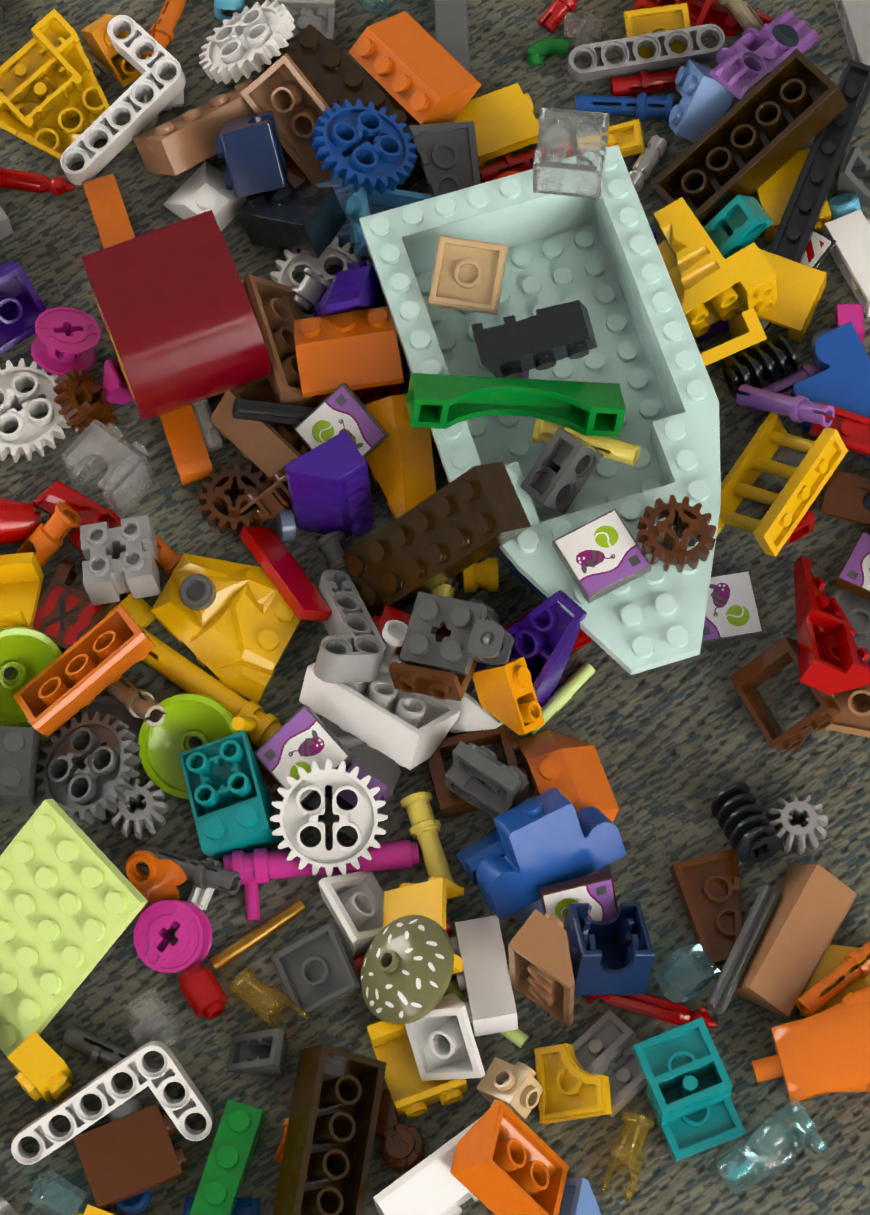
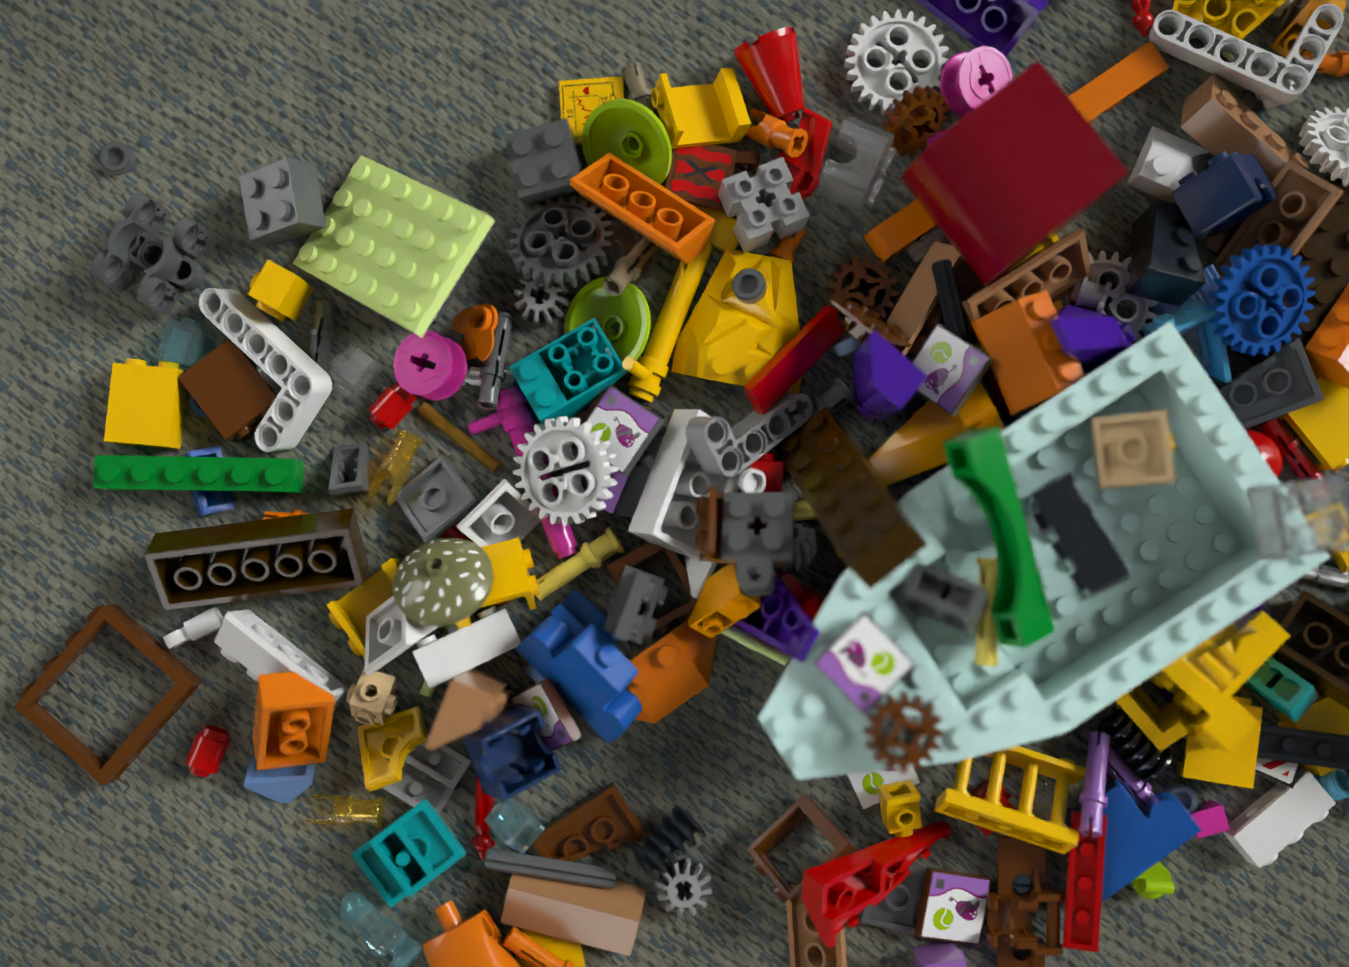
camera: 70 degrees right, 20 degrees up
(400, 1143) = (307, 613): reddish brown piece -> none
(767, 593) = (900, 807): none -> yellow brick

